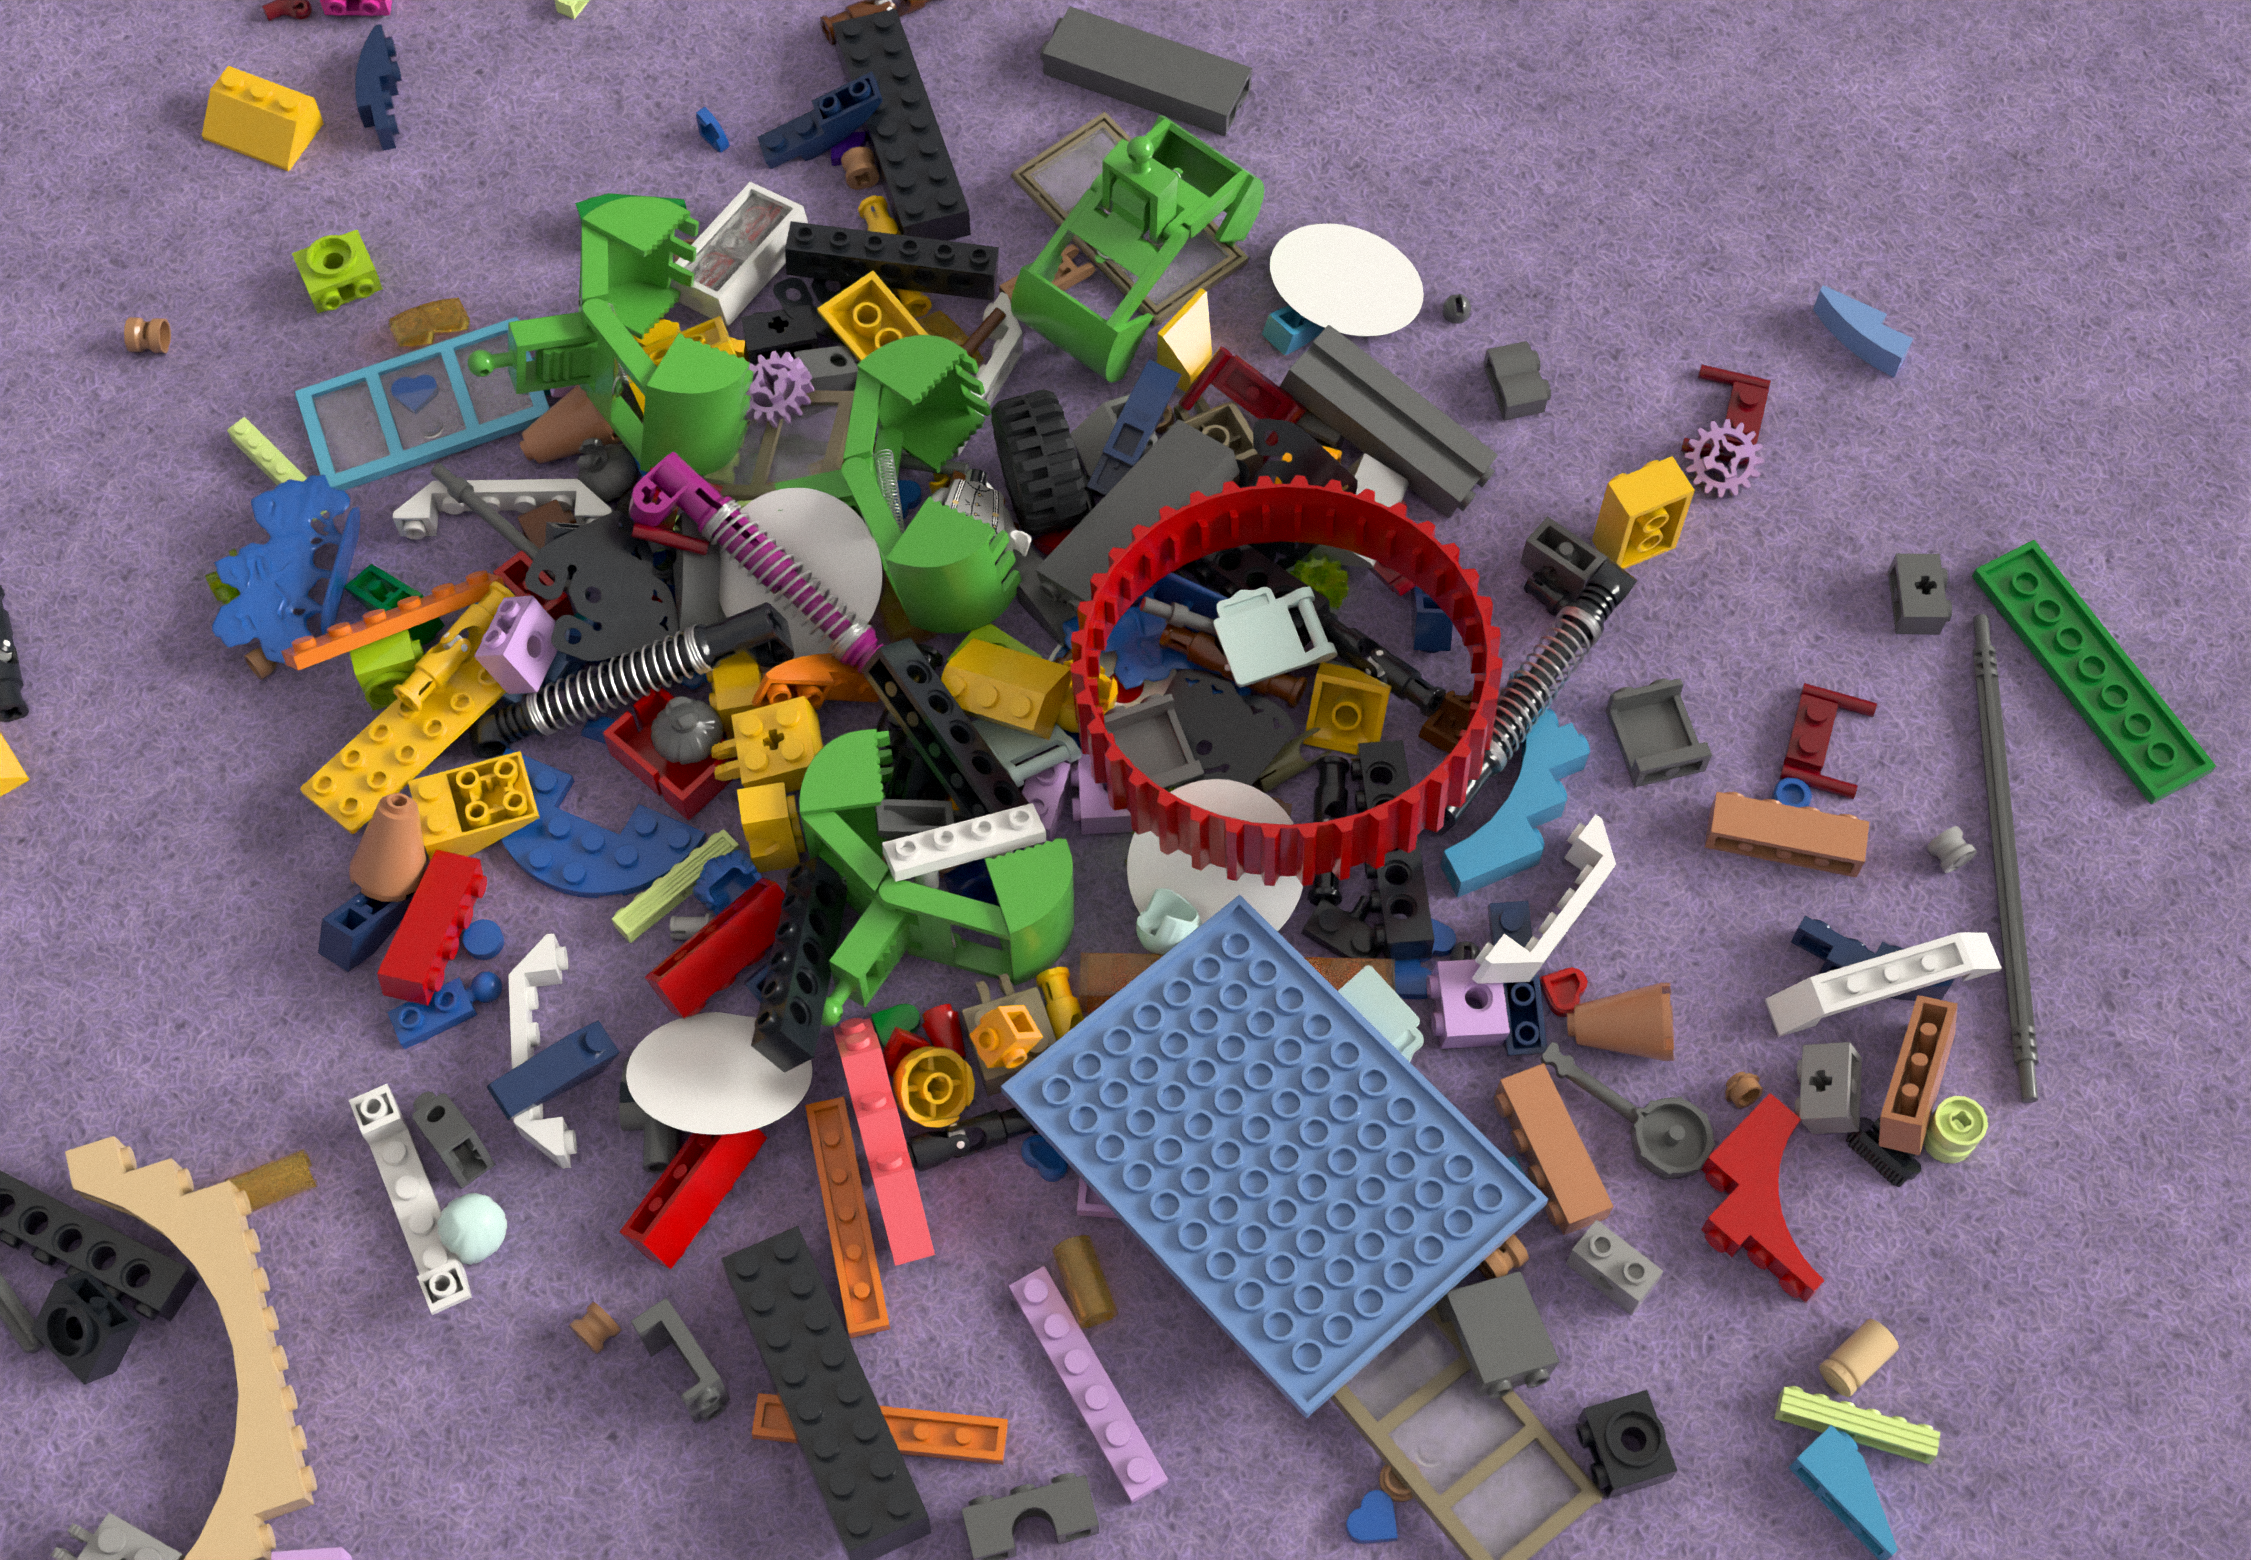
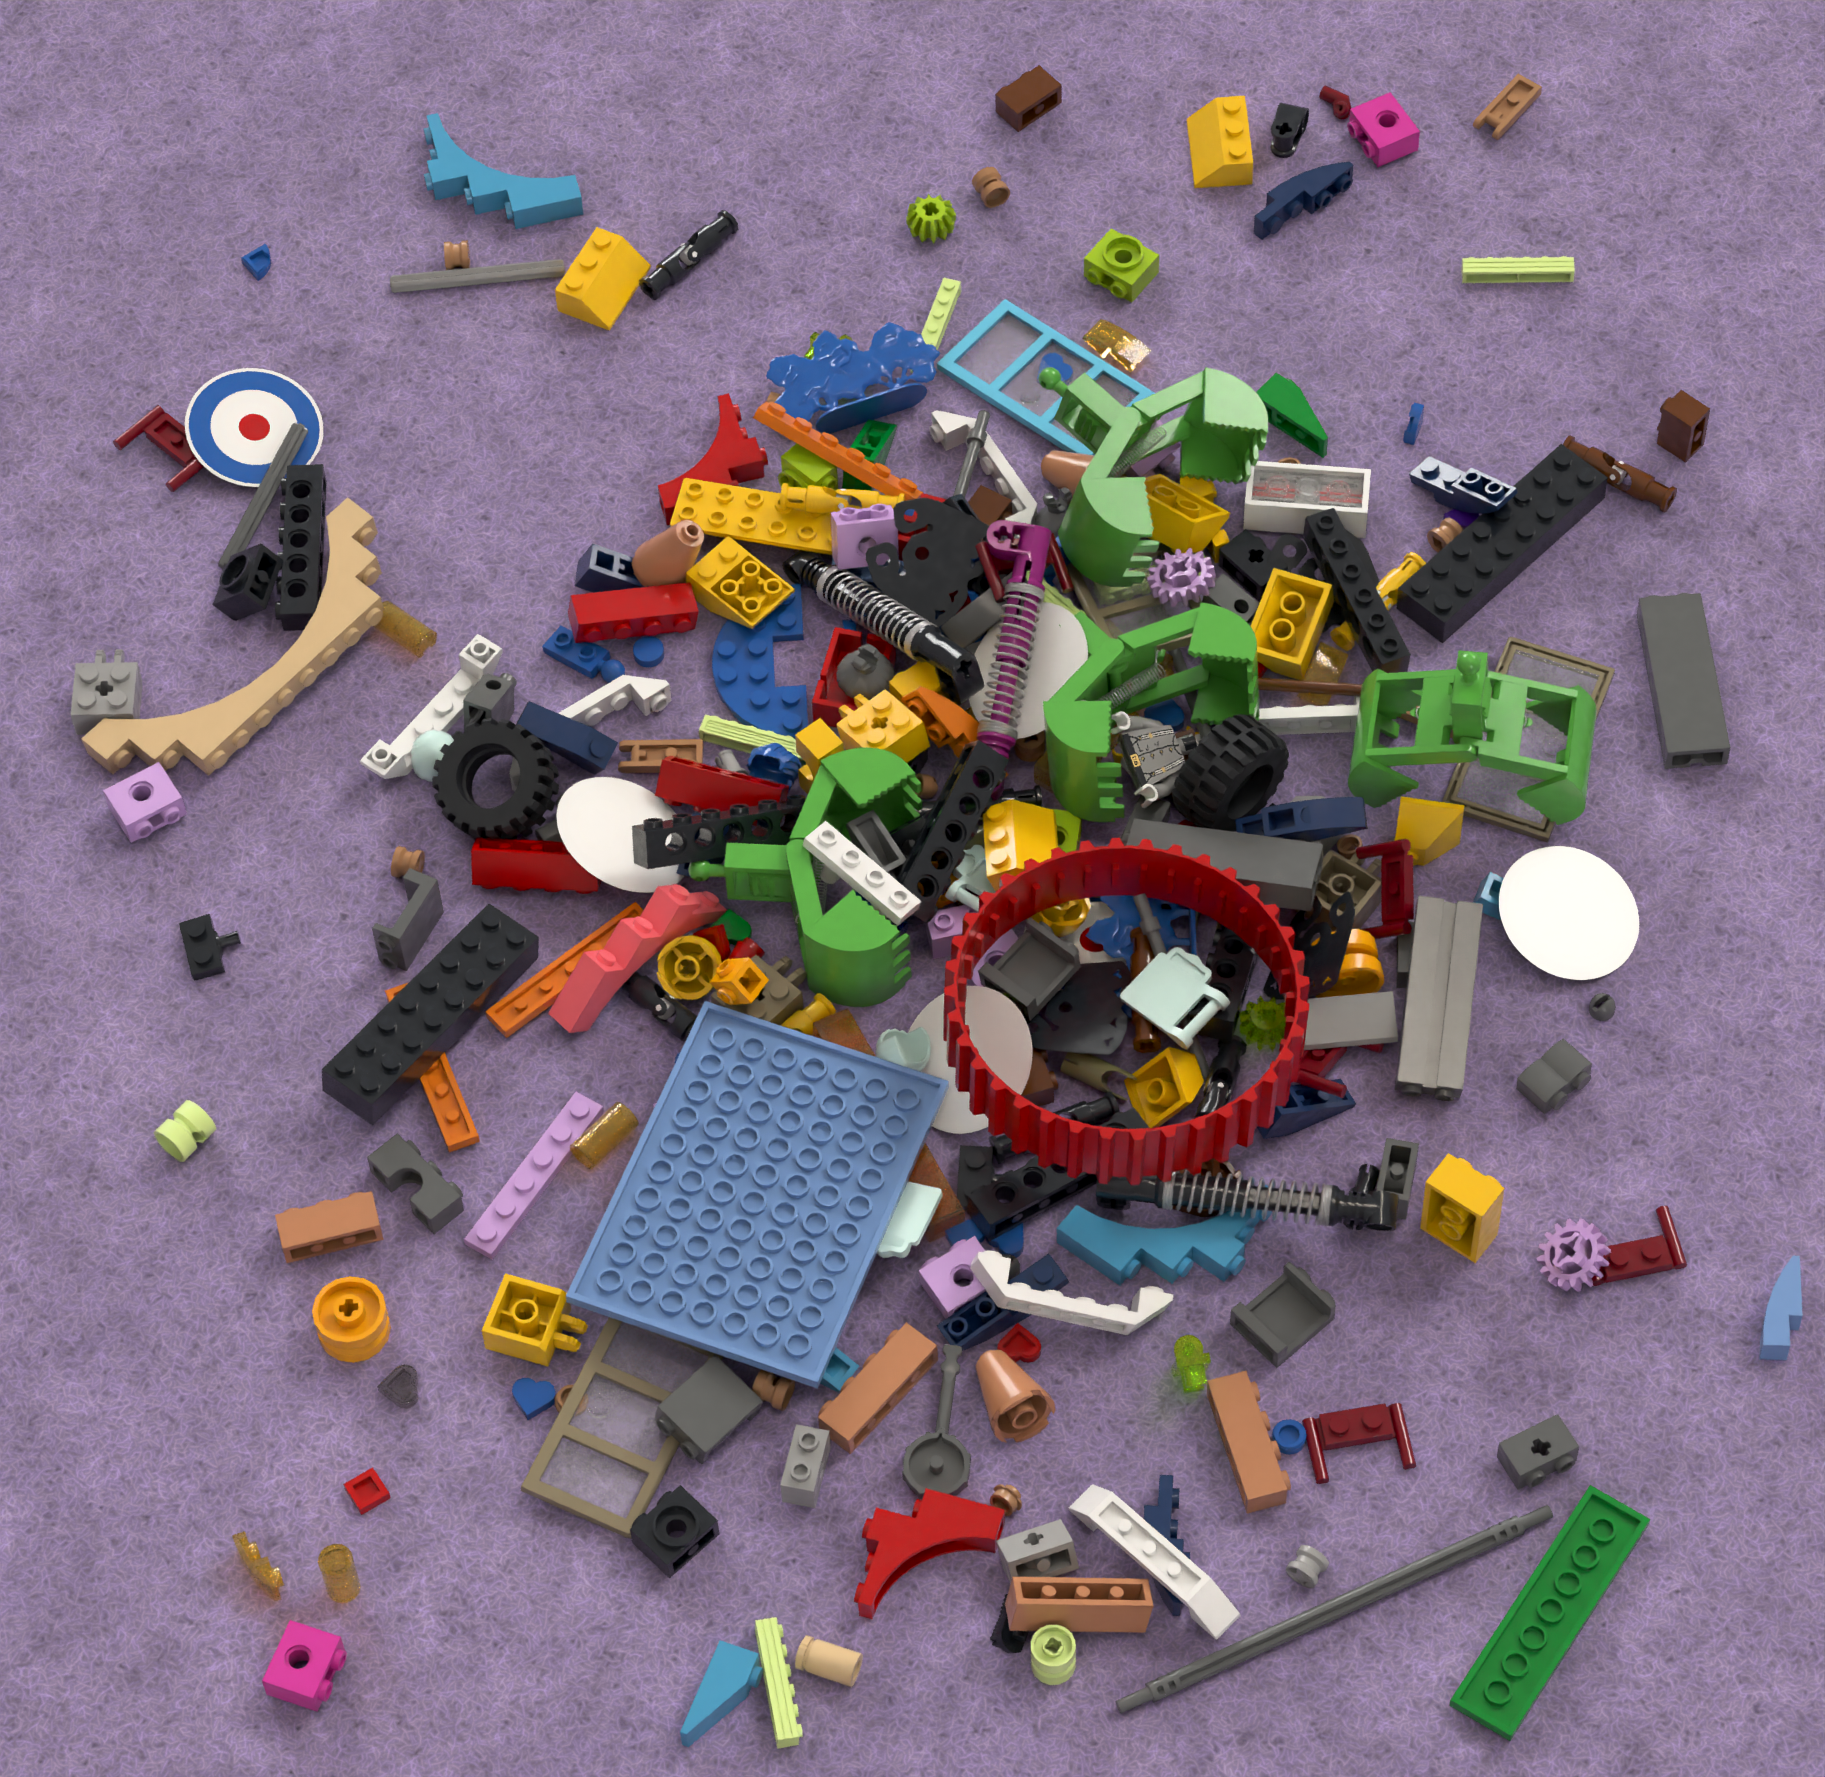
camera: 65 degrees right, 5 degrees down
(64, 250) = (1028, 98): none -> reddish brown brick
(141, 405) = (931, 218): none -> lime gear
(287, 60) = (1287, 129): none -> black piece
(302, 741) = (729, 460): none -> red arch
(578, 1228) = (466, 756): none -> black tyre
(629, 990) = (648, 754): none -> medium nougat hinge
(1283, 1451) = (530, 1320): none -> yellow hinge
(1685, 838) = (1190, 1363): none -> clear neon green hips

